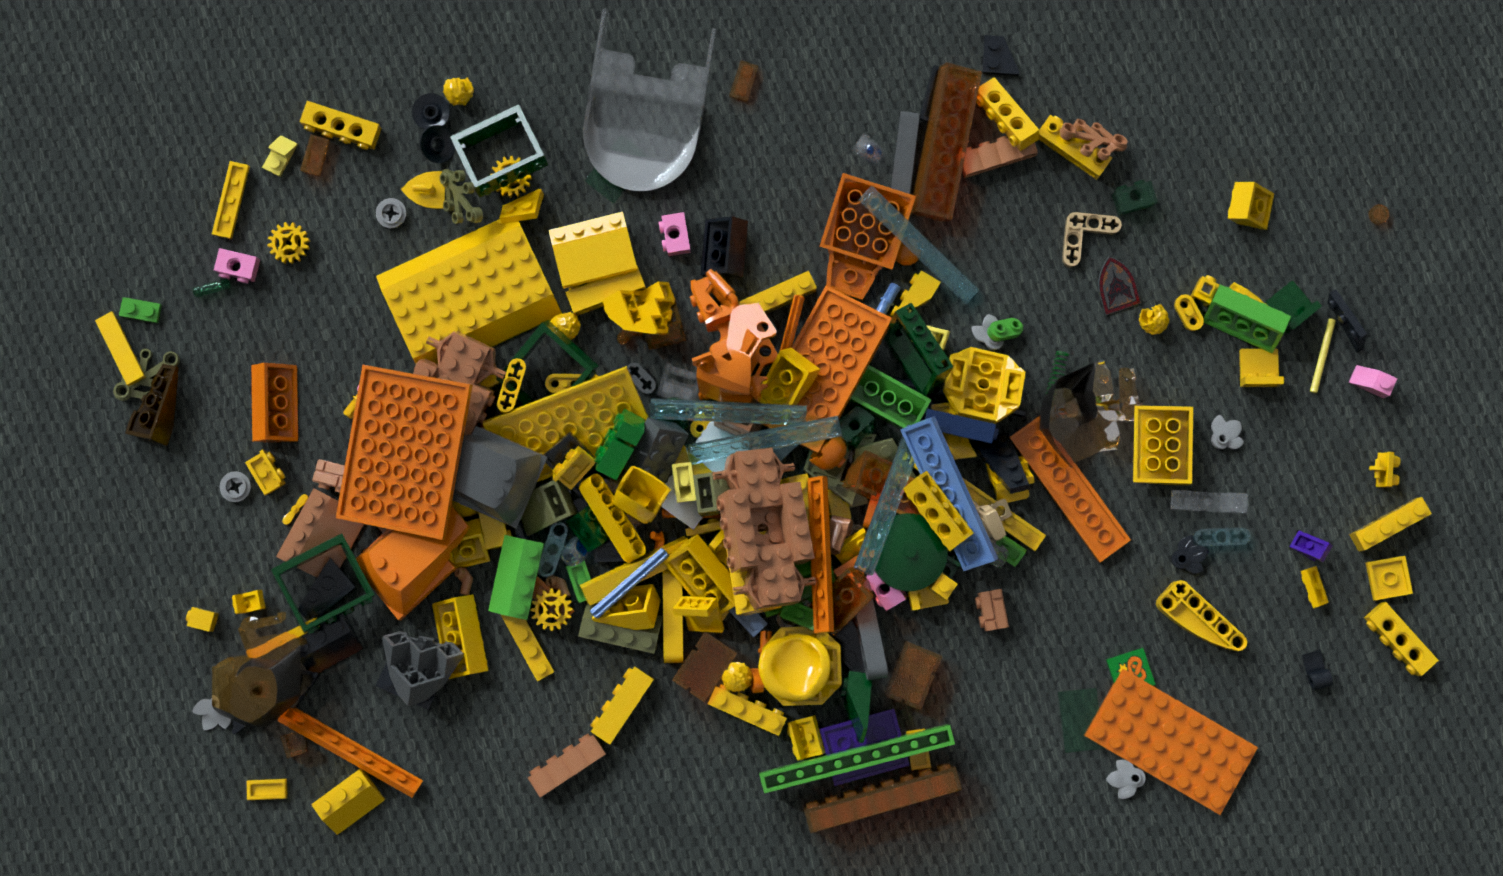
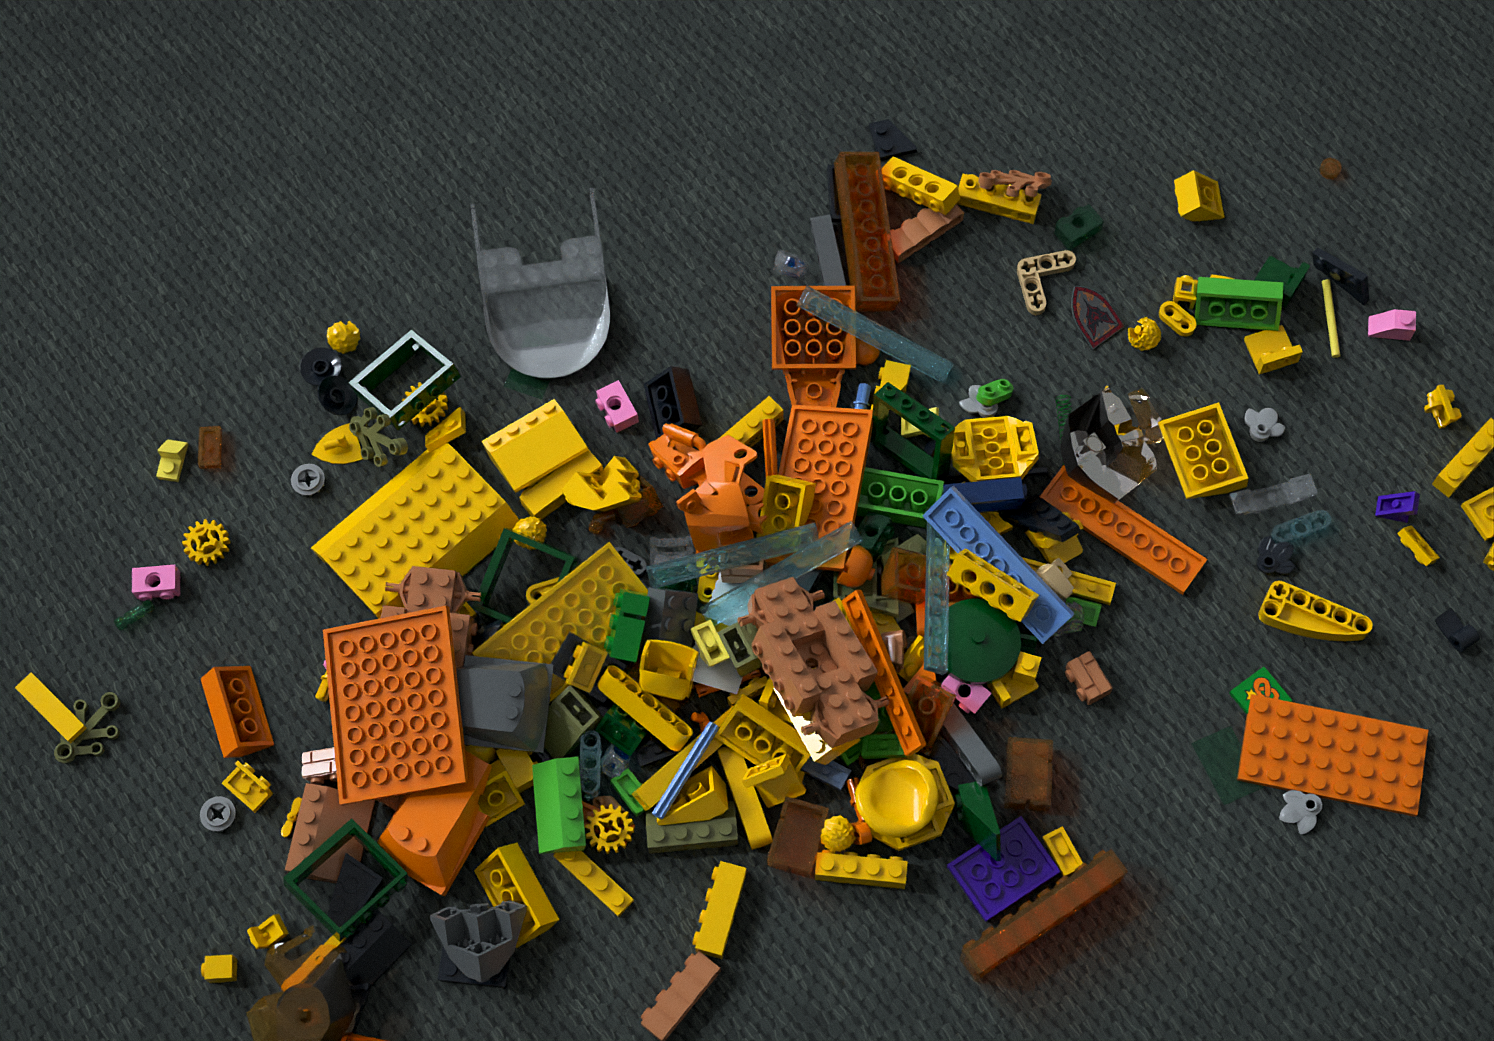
camera: 10 degrees left, 15 degrees down
(140, 310) = (62, 662): bright green plate -> none
(156, 414) = (109, 764): dark brown wedge -> none
(230, 200) = (131, 519): yellow plate -> none
(313, 112) = (219, 402): yellow brick -> none
(466, 579) = (503, 830): nougat arm -> none
(520, 373) = (485, 597): yellow beam -> none
(743, 81) = (638, 240): clear orange plate -> none
(805, 738) = (936, 879): yellow bracket -> none
(856, 758) = (999, 878): bright green brick -> none

